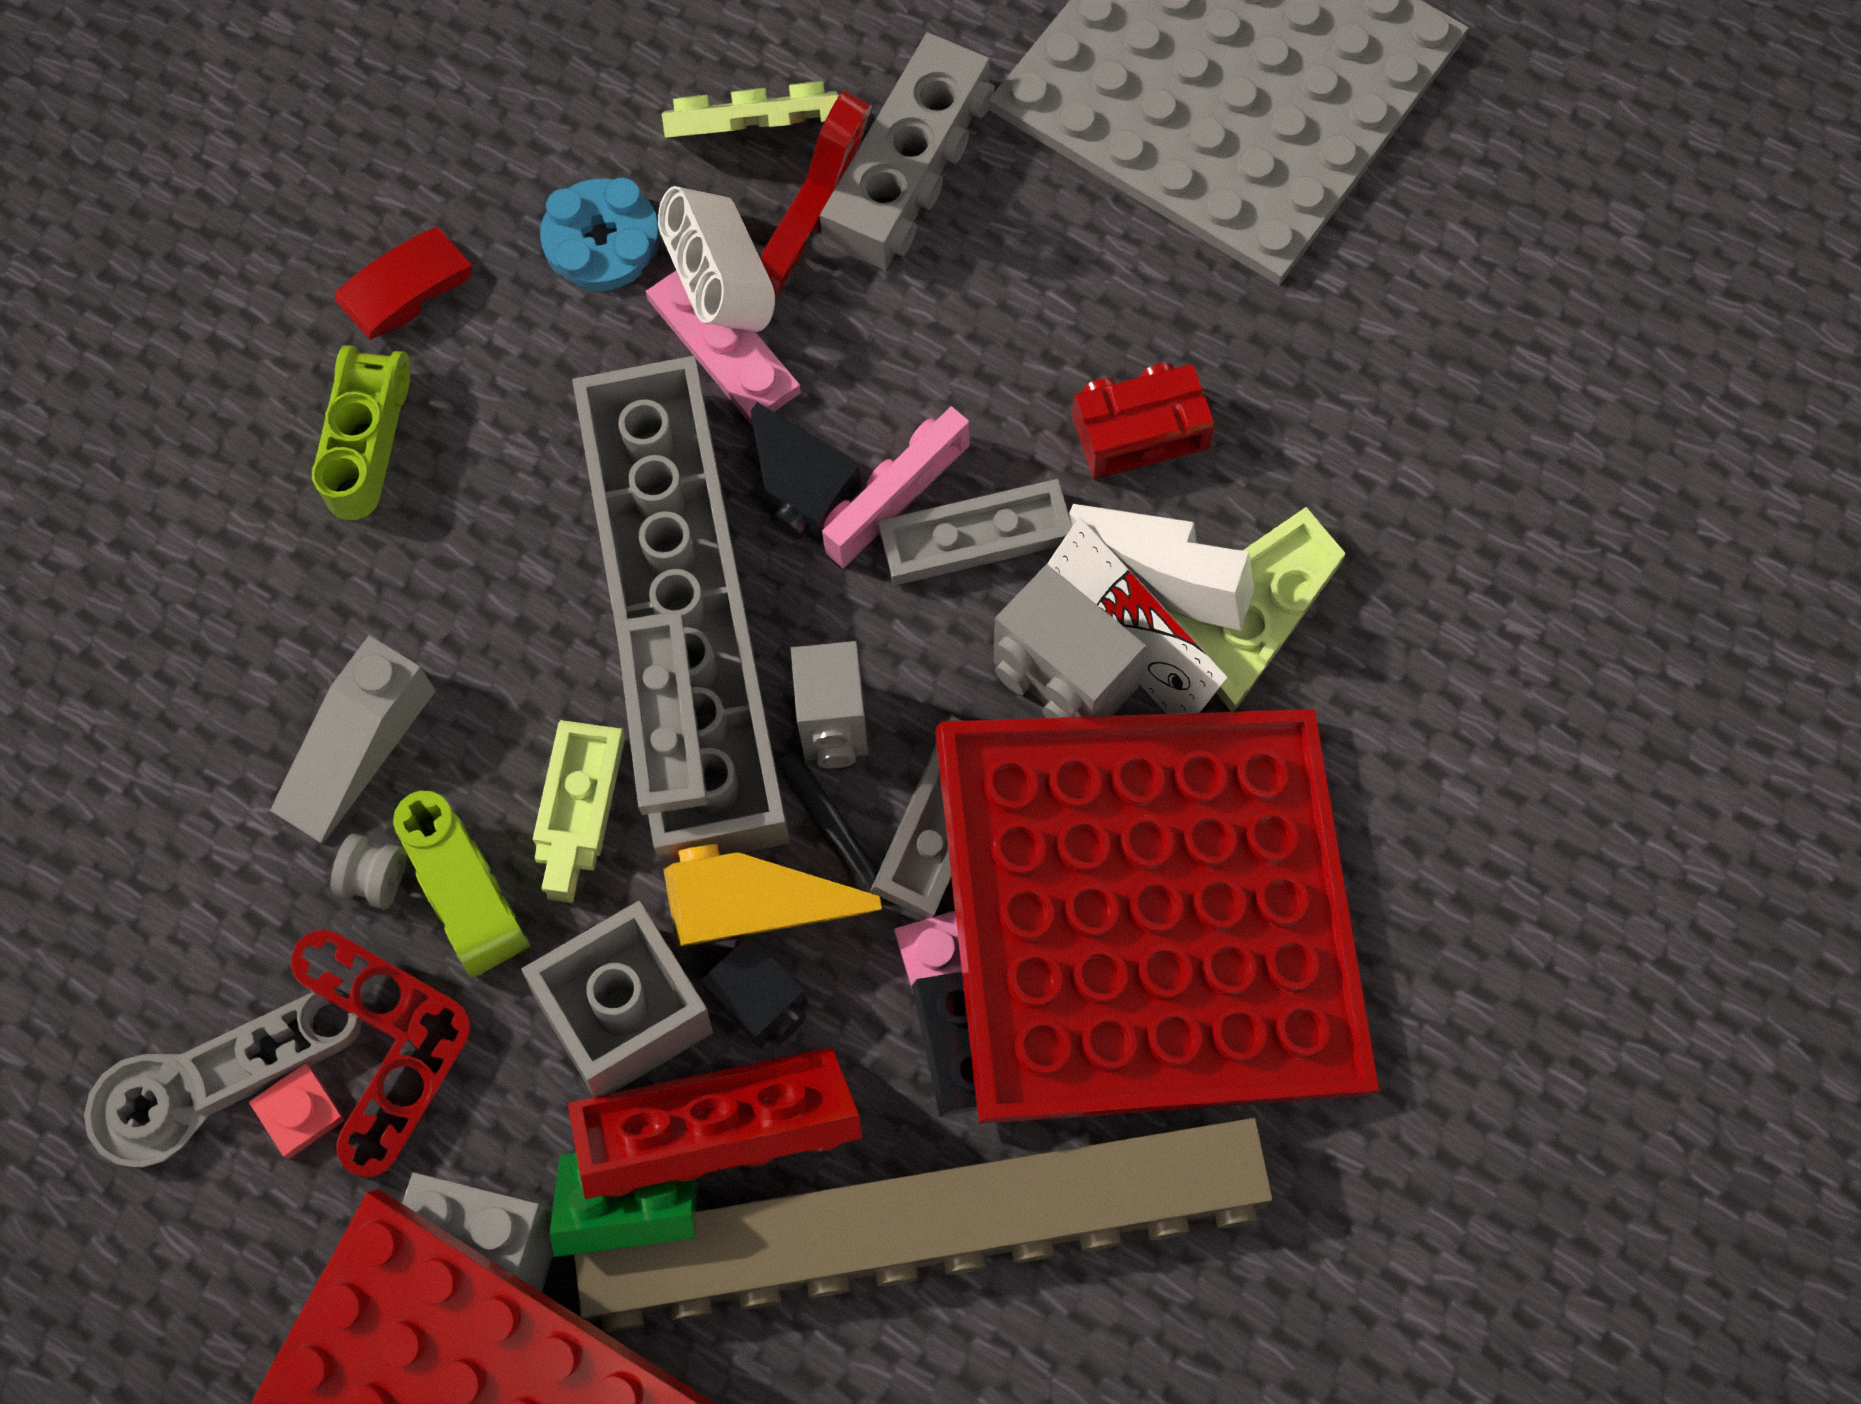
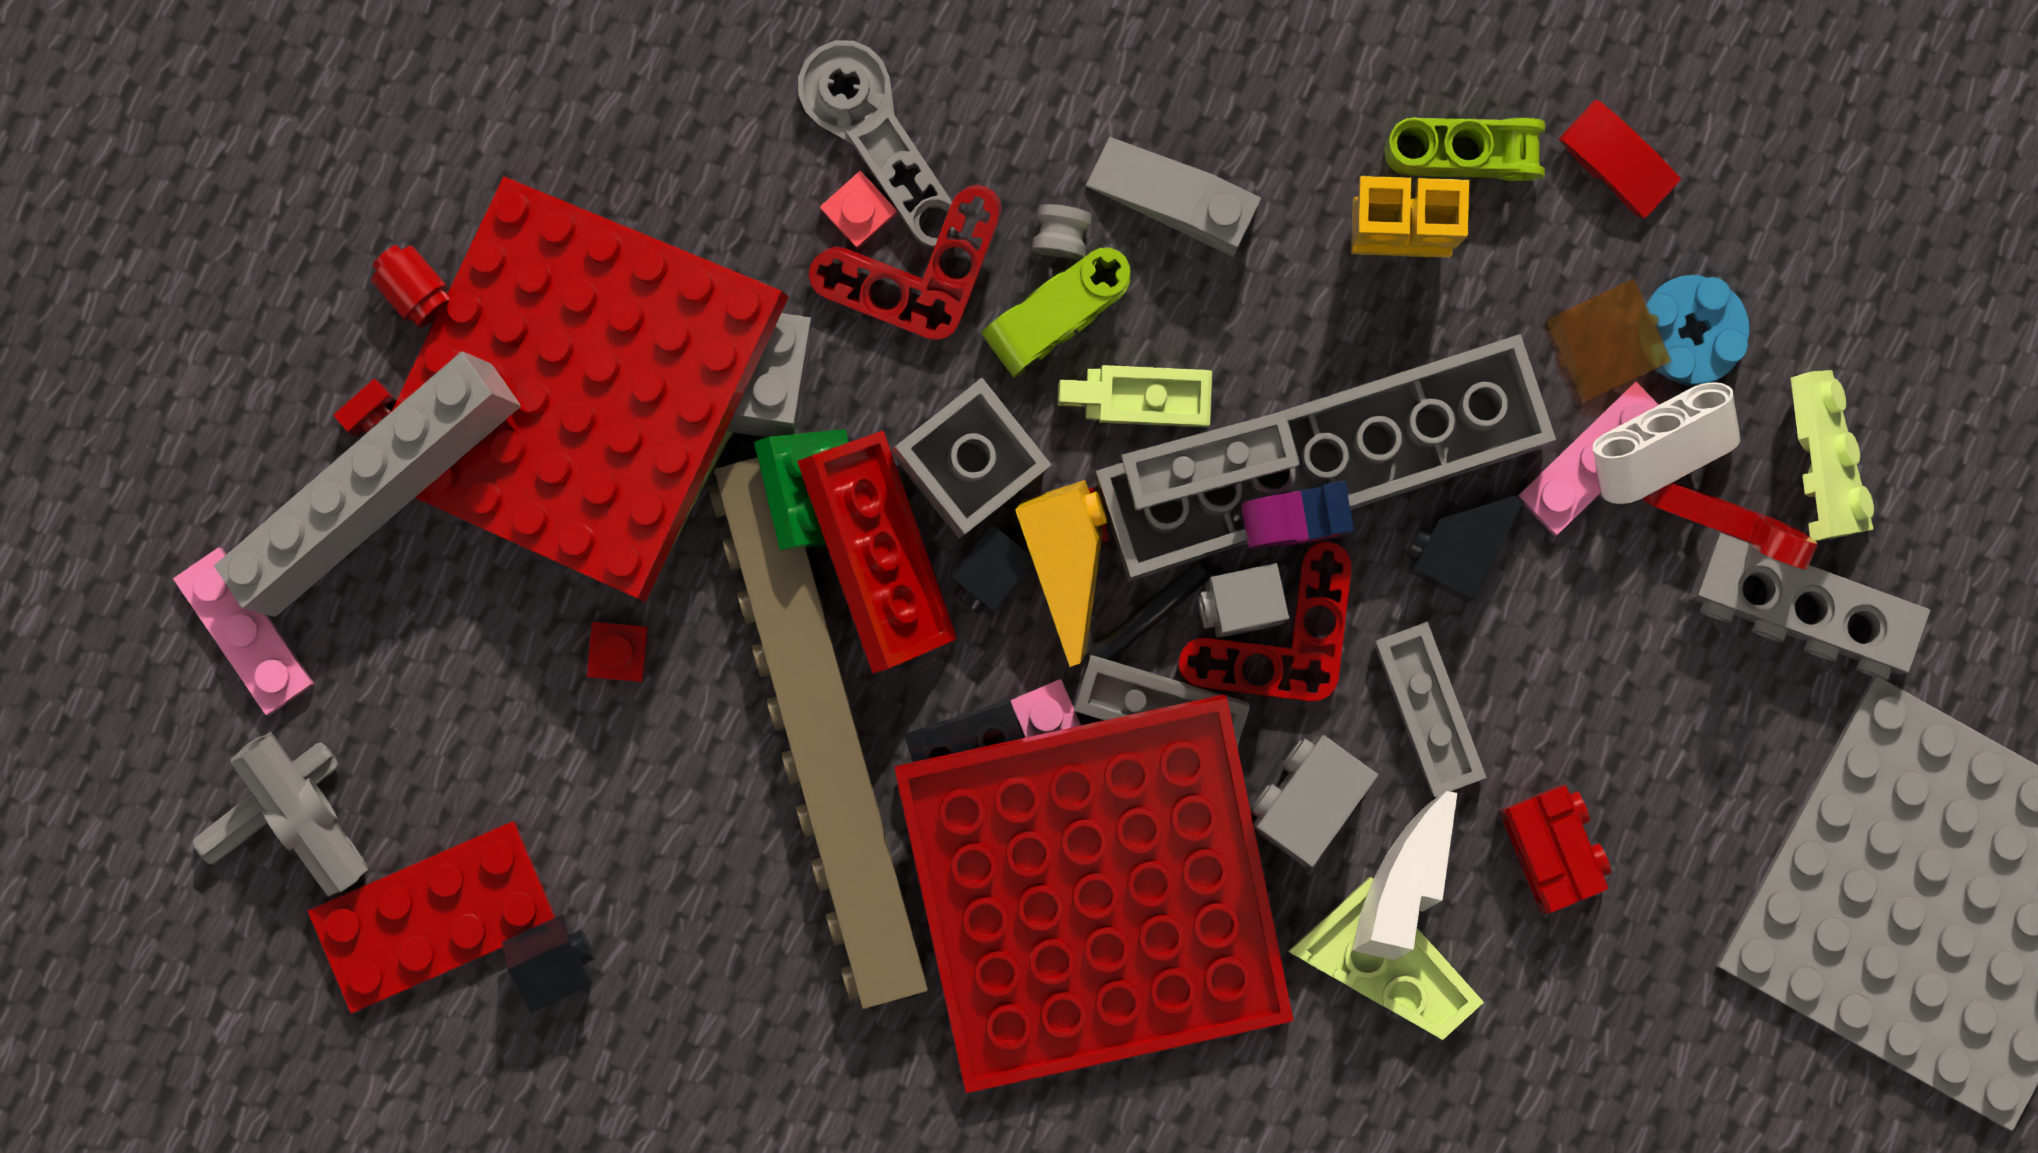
camera: 75 degrees right, 15 degrees up
(419, 473) = (1395, 225): none -> yellow hips
(596, 311) = (1609, 340): none -> clear orange piece
(740, 617) = (1298, 516): none -> leg
(889, 659) = (1303, 646): none -> red beam
(895, 485) = (1465, 633): bright pink plate -> none
(1174, 665) = (1353, 855): white sticker -> none

